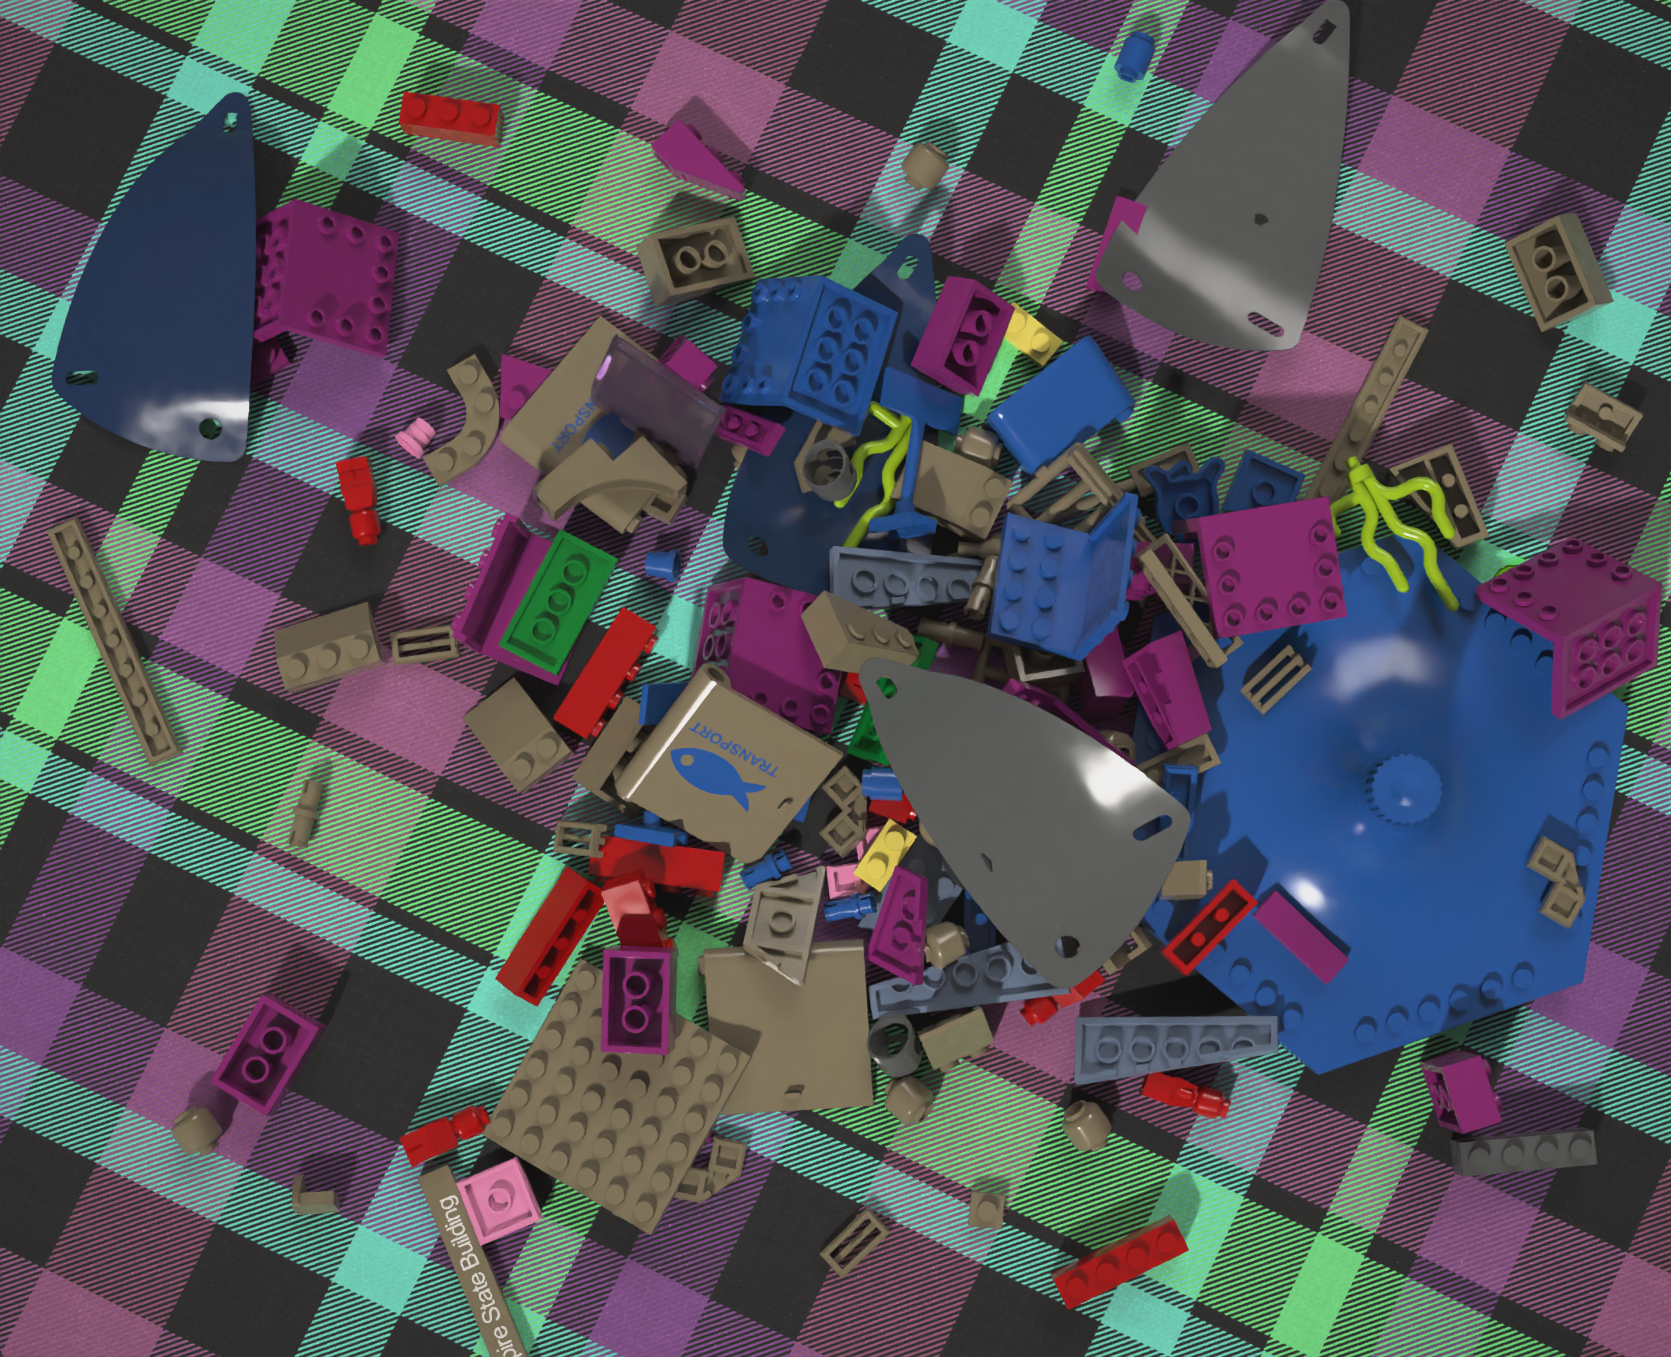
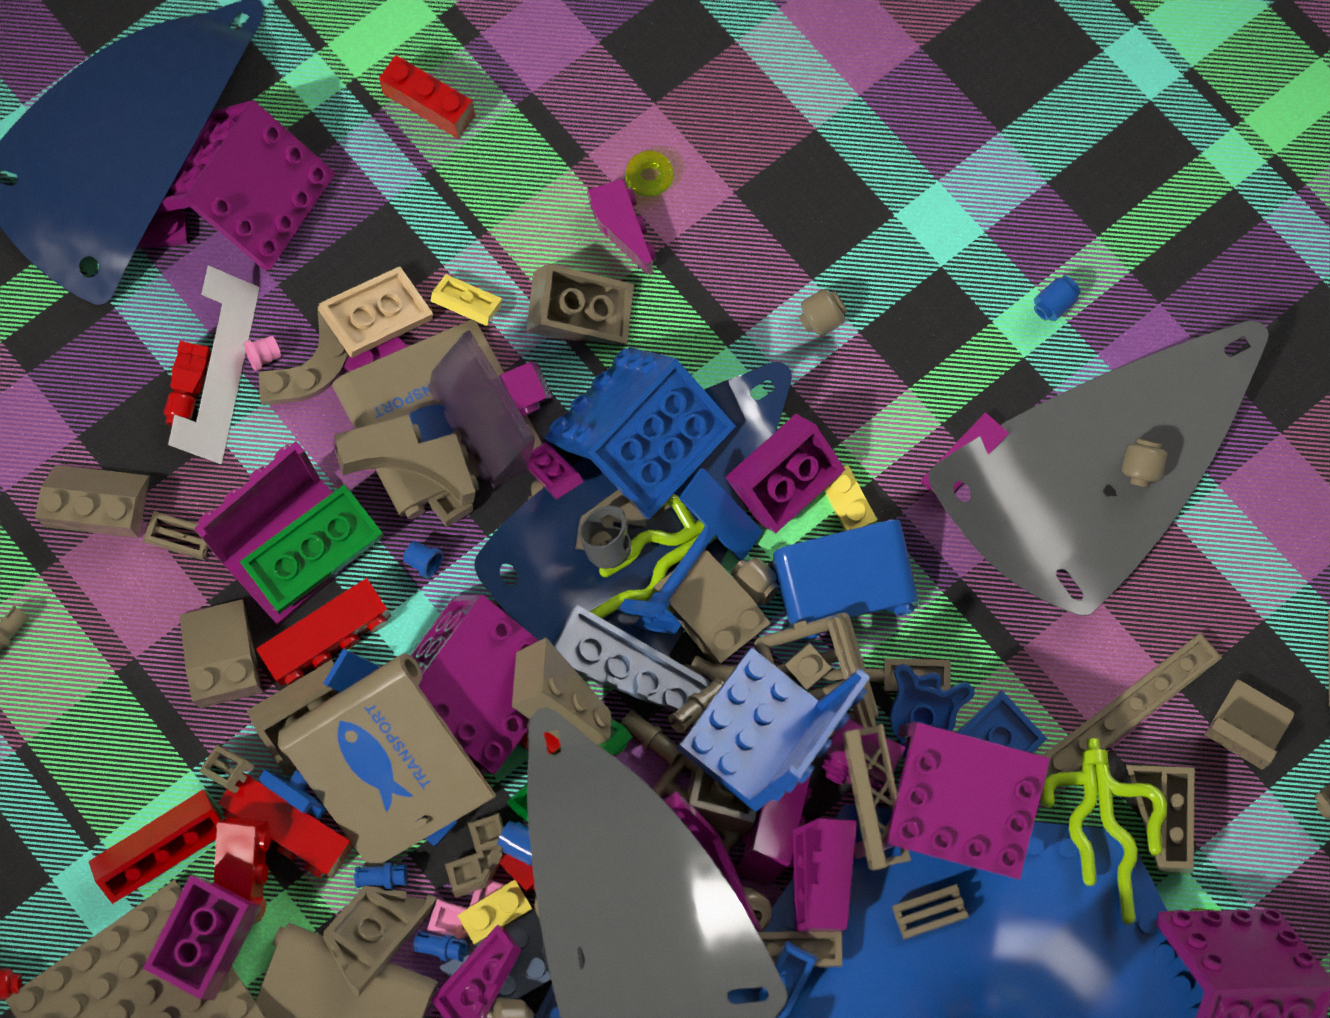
camera: 25 degrees right, 10 degrees down
(406, 539) = (210, 432): none -> white sticker
(506, 351) = (375, 311): none -> tan plate
(585, 301) = (466, 299): none -> light yellow plate
(694, 87) = (646, 160): none -> clear neon green piece
(1065, 506) = (808, 665): none -> dark tan plate
(1283, 179) = (1144, 462): none -> dark tan head
(1479, 380) = (1250, 724): none -> dark tan bracket

